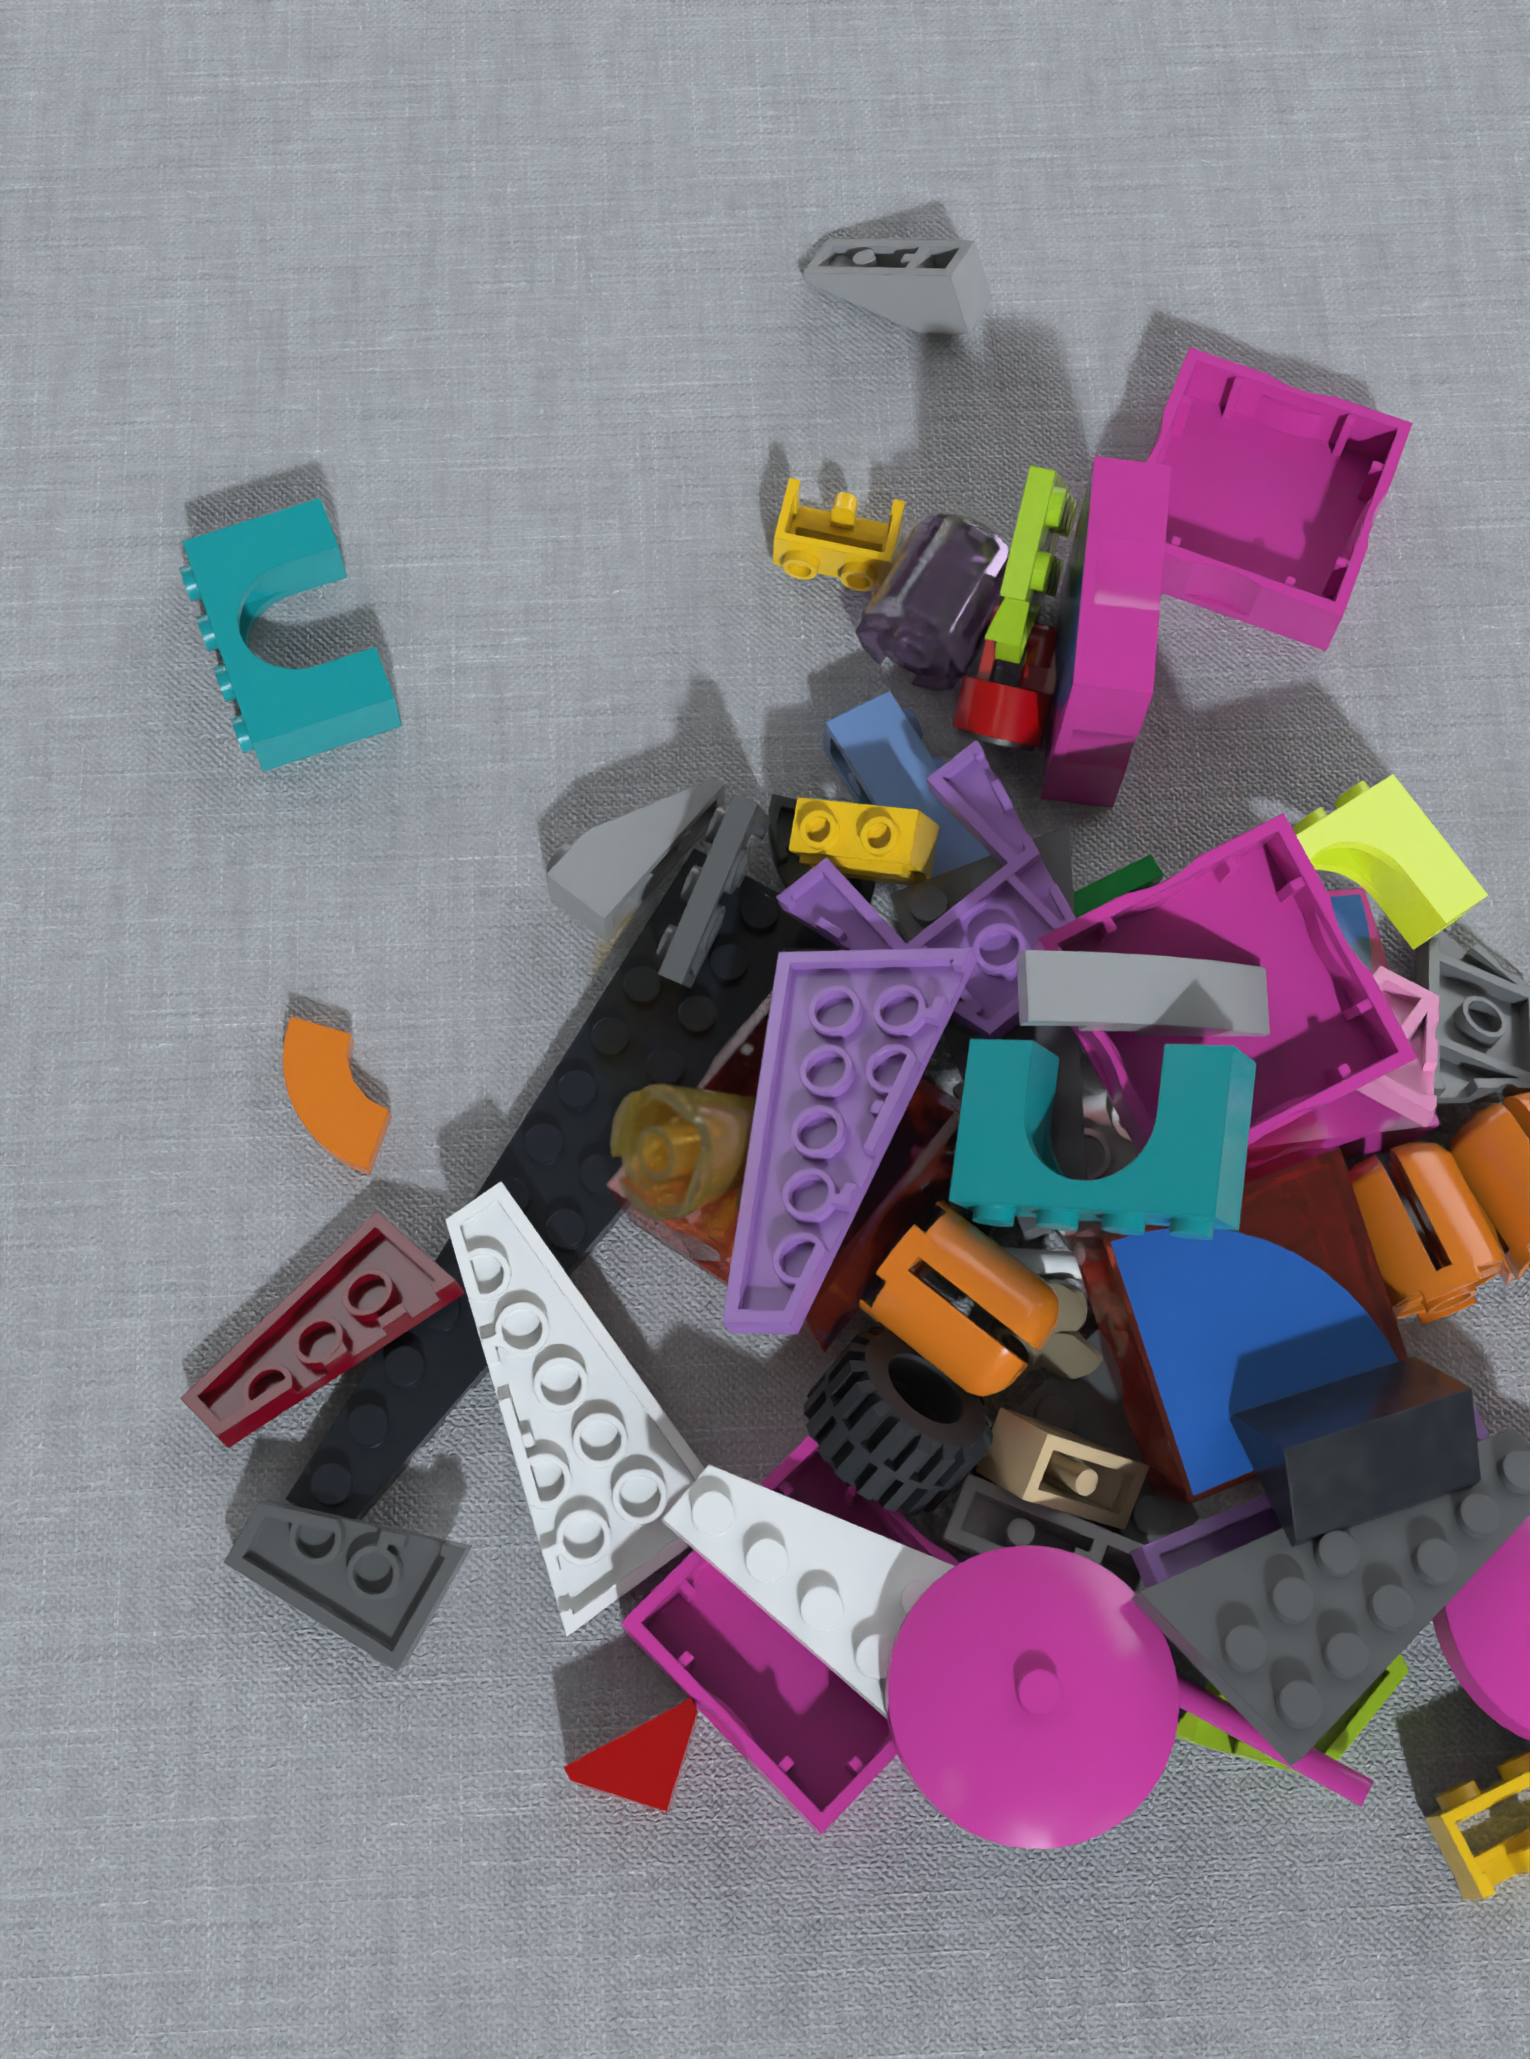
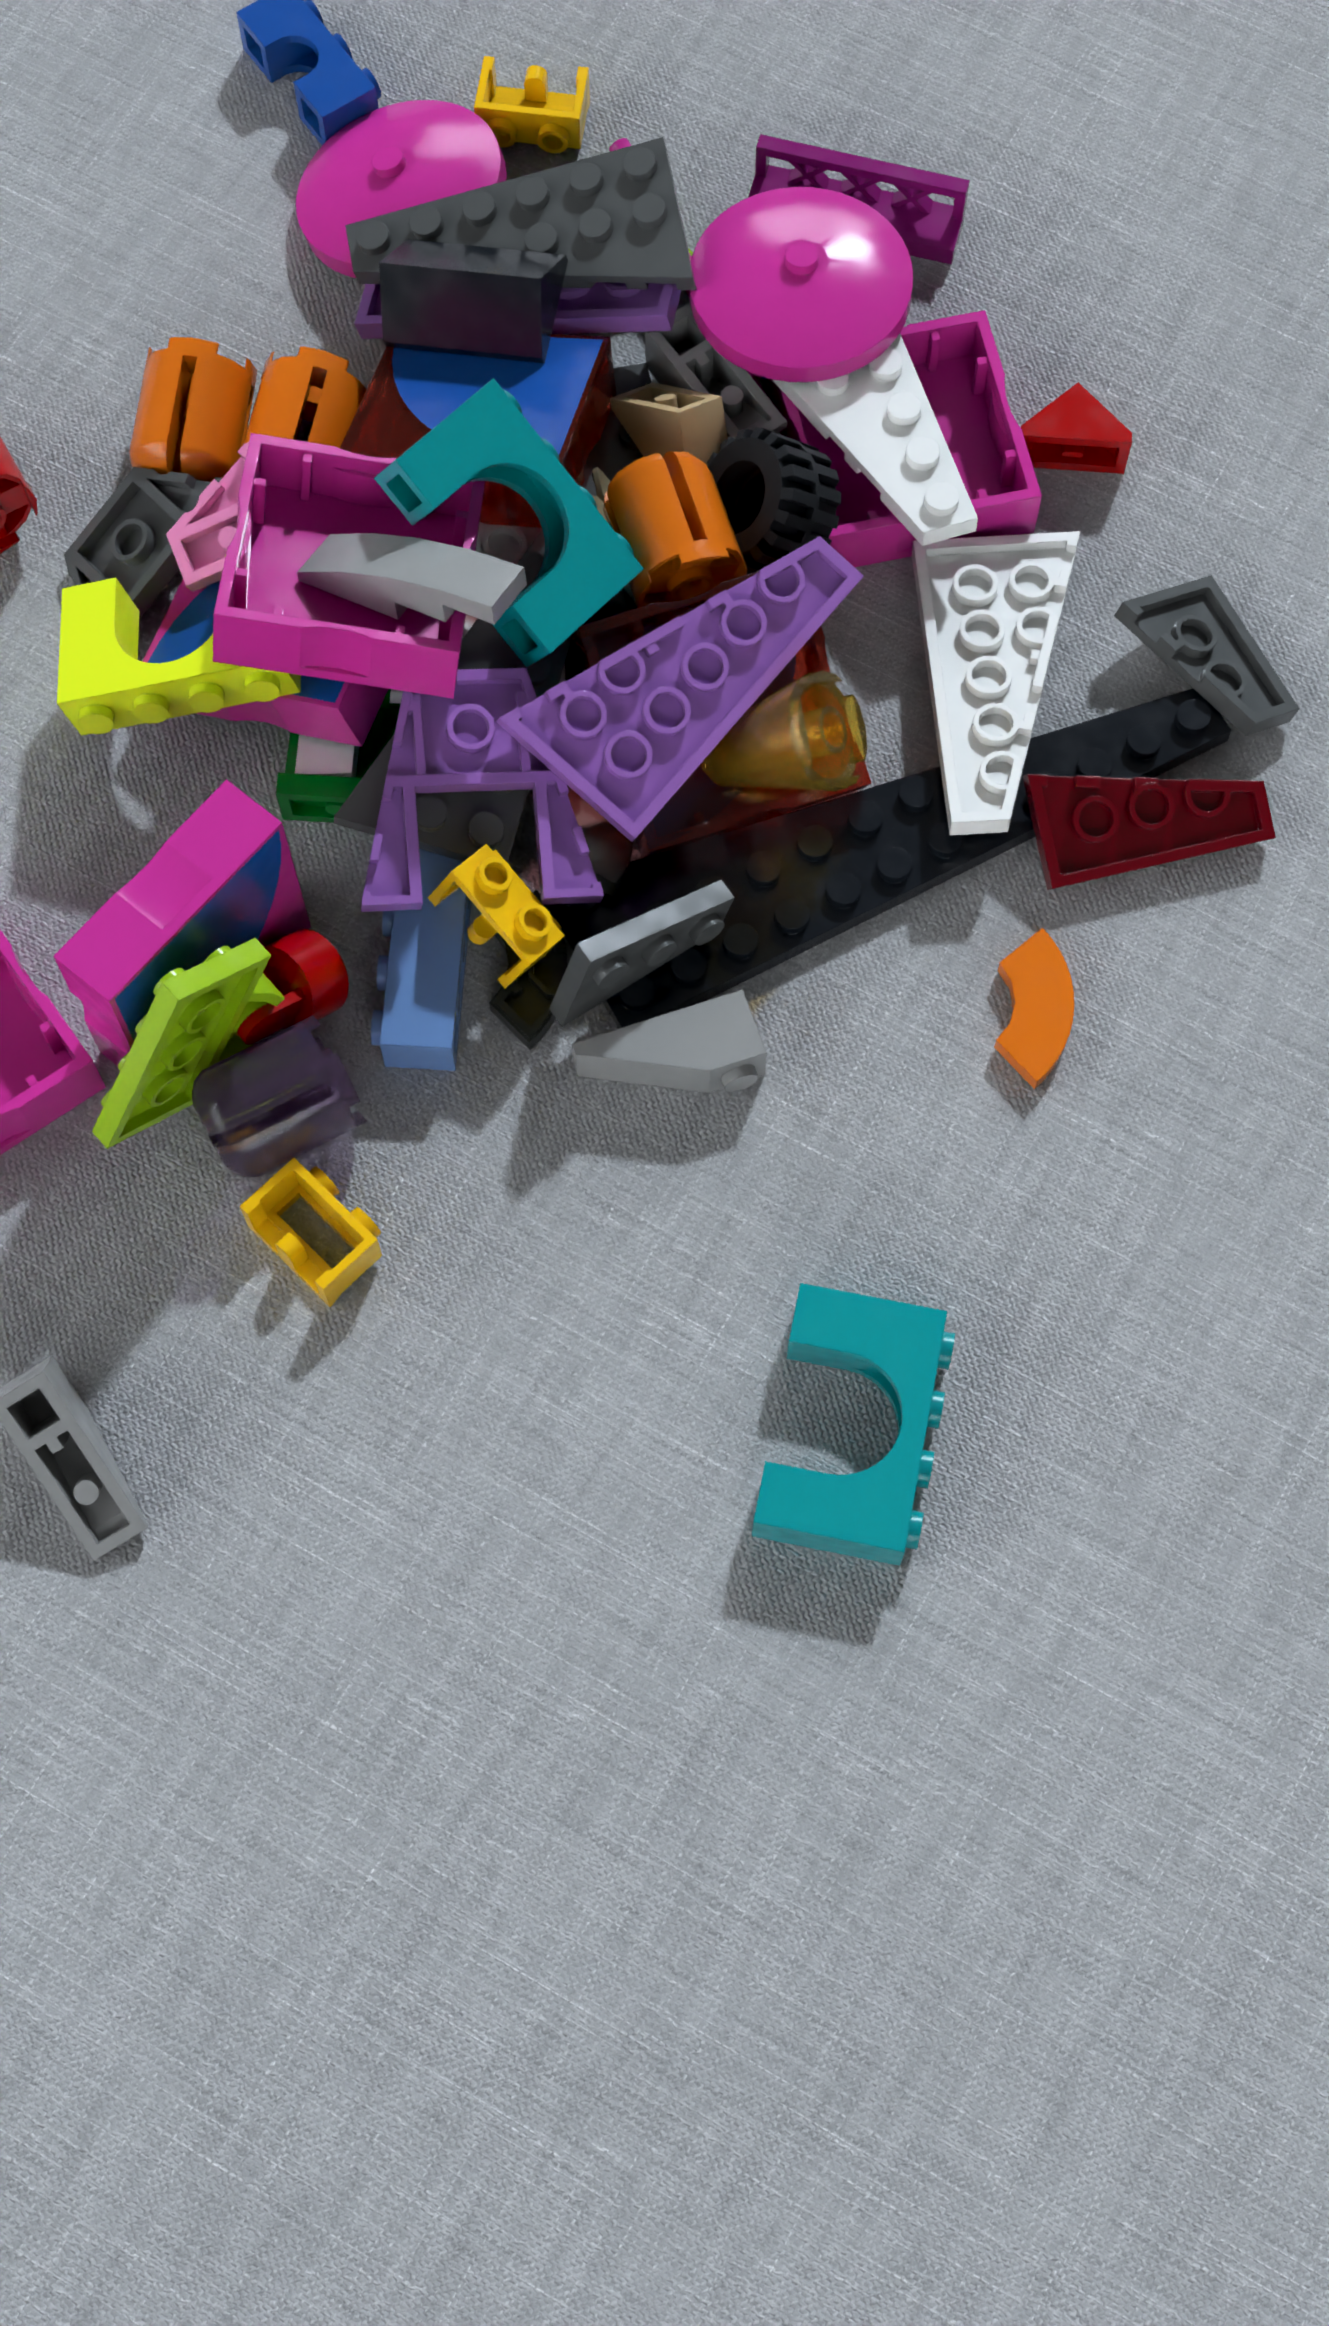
camera: 145 degrees left, 0 degrees up
(1067, 1931) = (926, 226): none -> magenta fence

